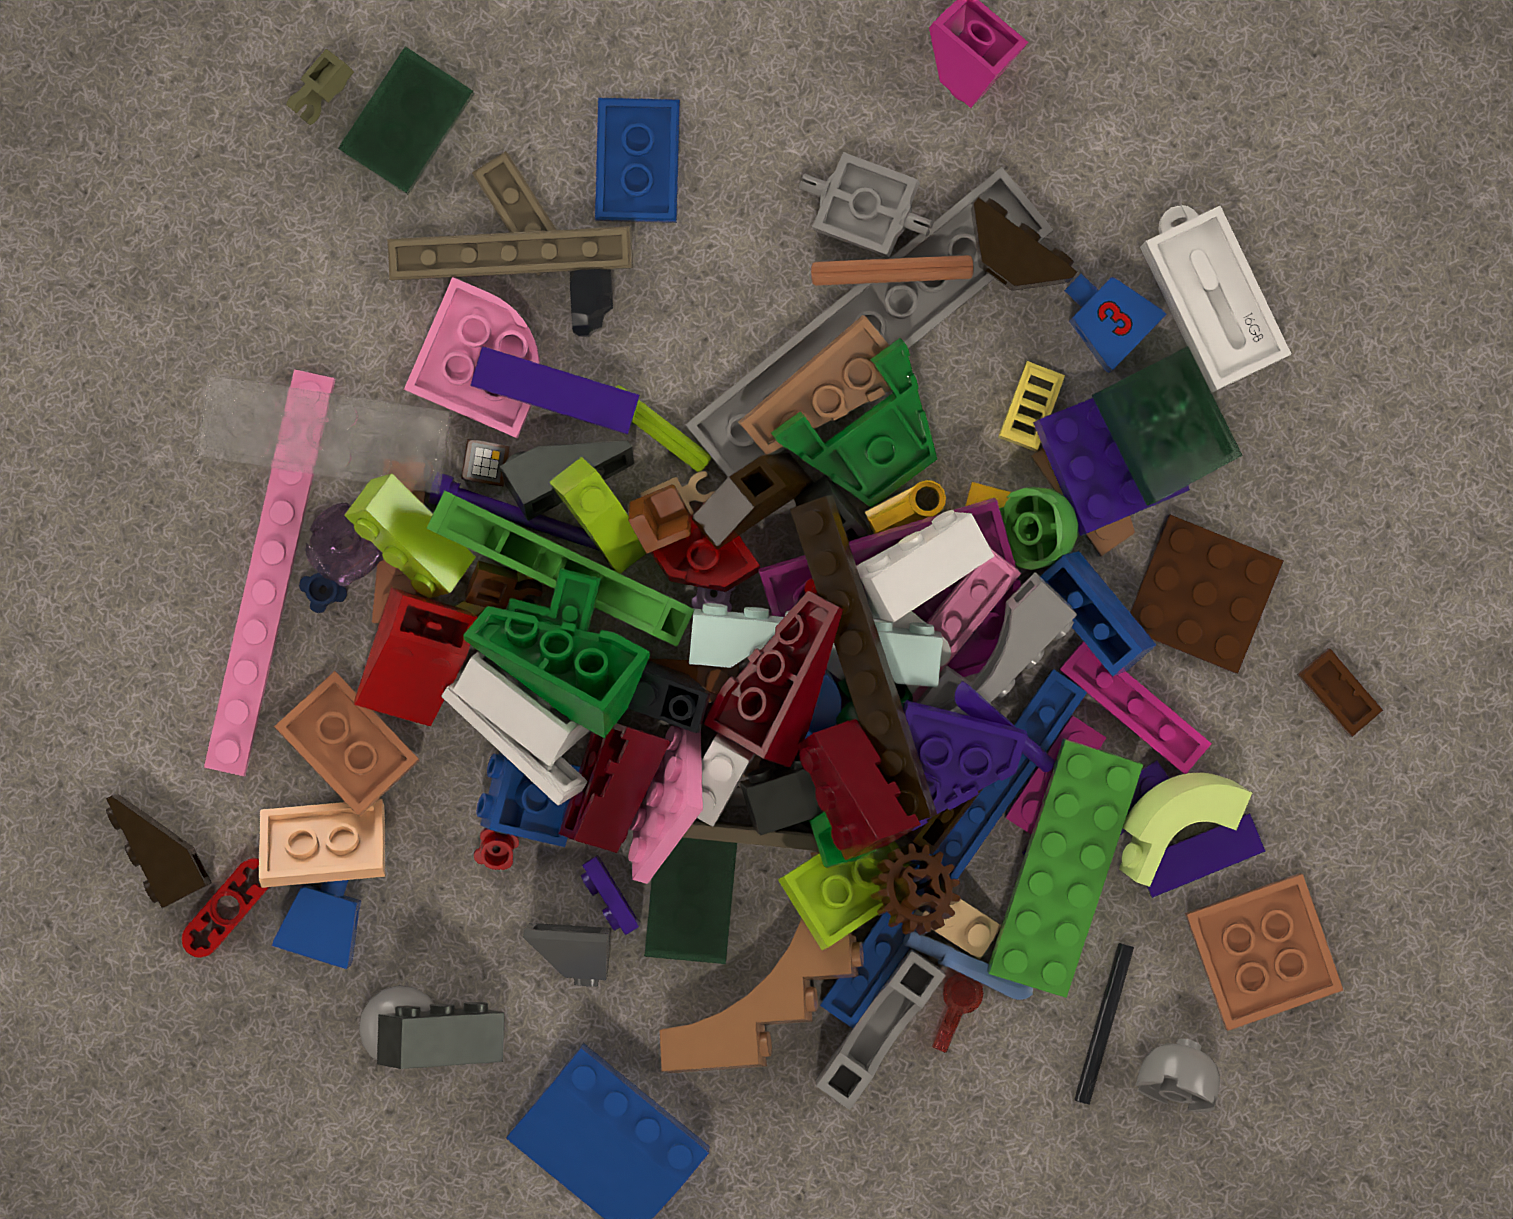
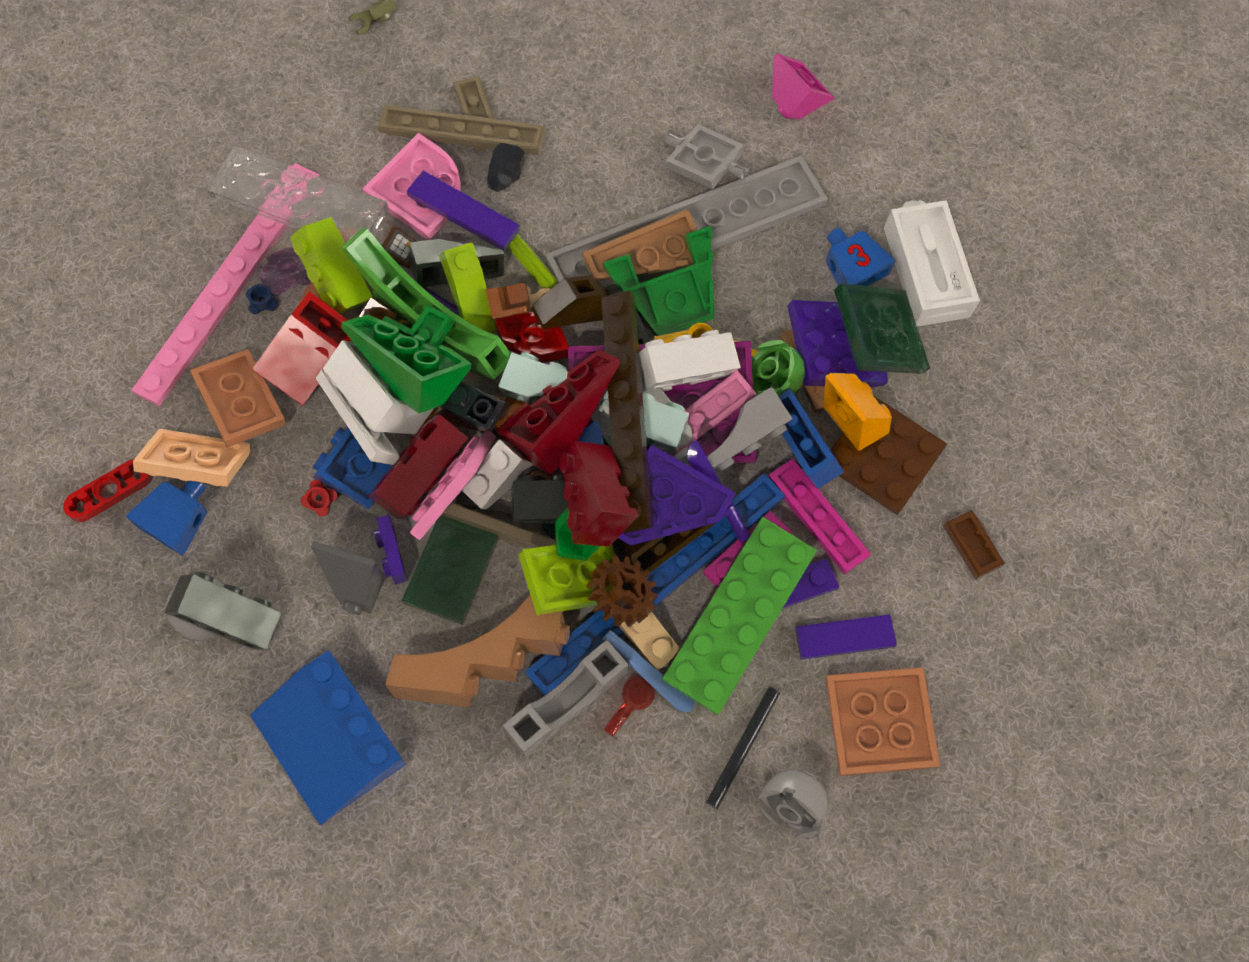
camera: 10 degrees right, 20 degrees down
(166, 859) = (76, 447): dark brown slope -> none
(406, 120) = (420, 45): clear green plate -> none
(637, 160) = (563, 101): blue tile -> none
(892, 270) = (712, 193): nougat axle -> none
(1013, 252) = (800, 201): dark brown slope -> none
(1017, 436) = (773, 318): light yellow slope -> none
(1157, 558) = (855, 409): none -> light orange slope
(1171, 808) = (821, 590): yellowish green arch -> none

